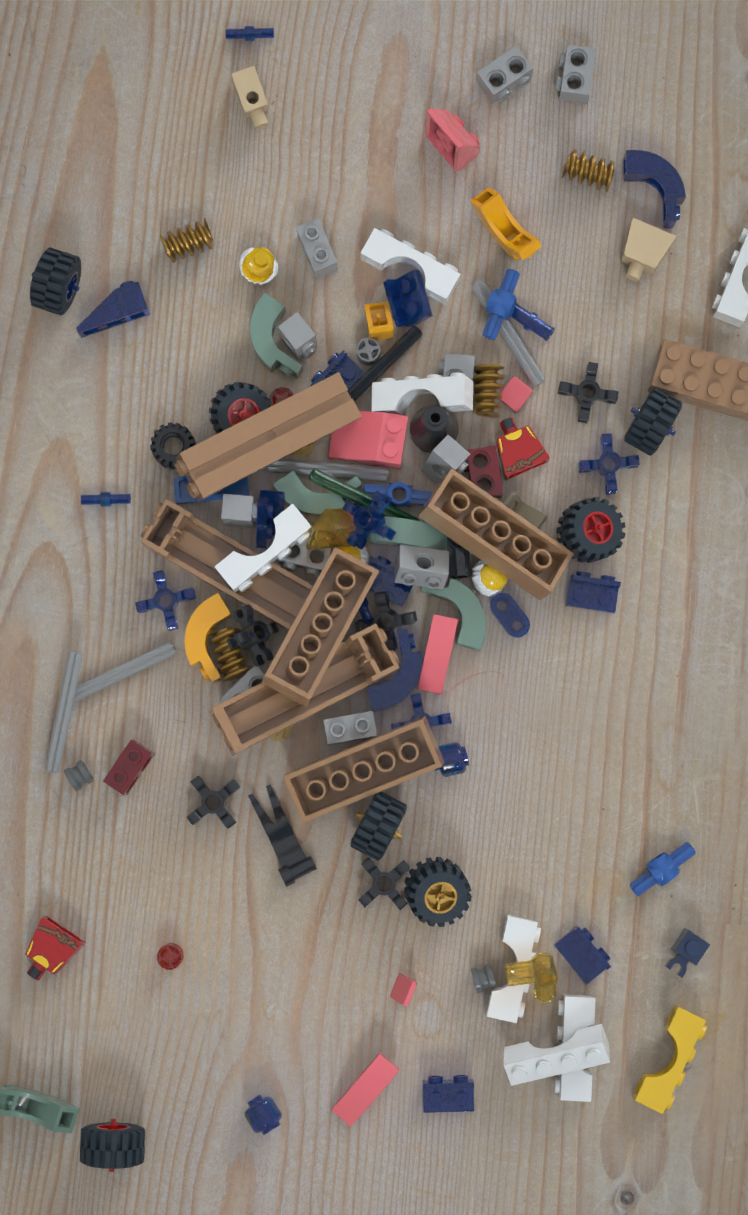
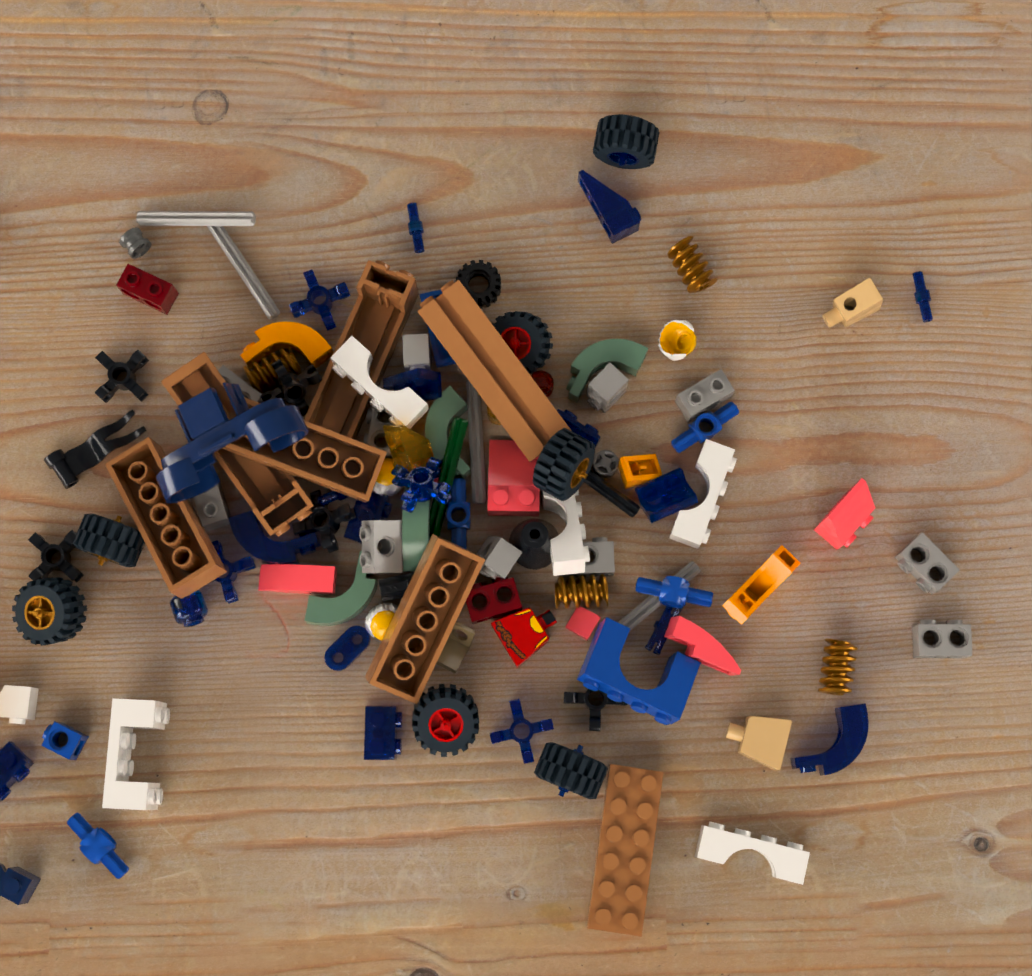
camera: 80 degrees right, 5 degrees down
(298, 702) = (207, 428): none -> dark blue piece
(341, 243) = (694, 433): none -> blue axle
(371, 382) = (563, 464): none -> black wheel
(553, 288) = (701, 645): none -> coral slope
(568, 378) = (603, 673): none -> blue arch
(571, 886) = (75, 742): none -> blue brick
(620, 832) = (118, 790): none -> white plate

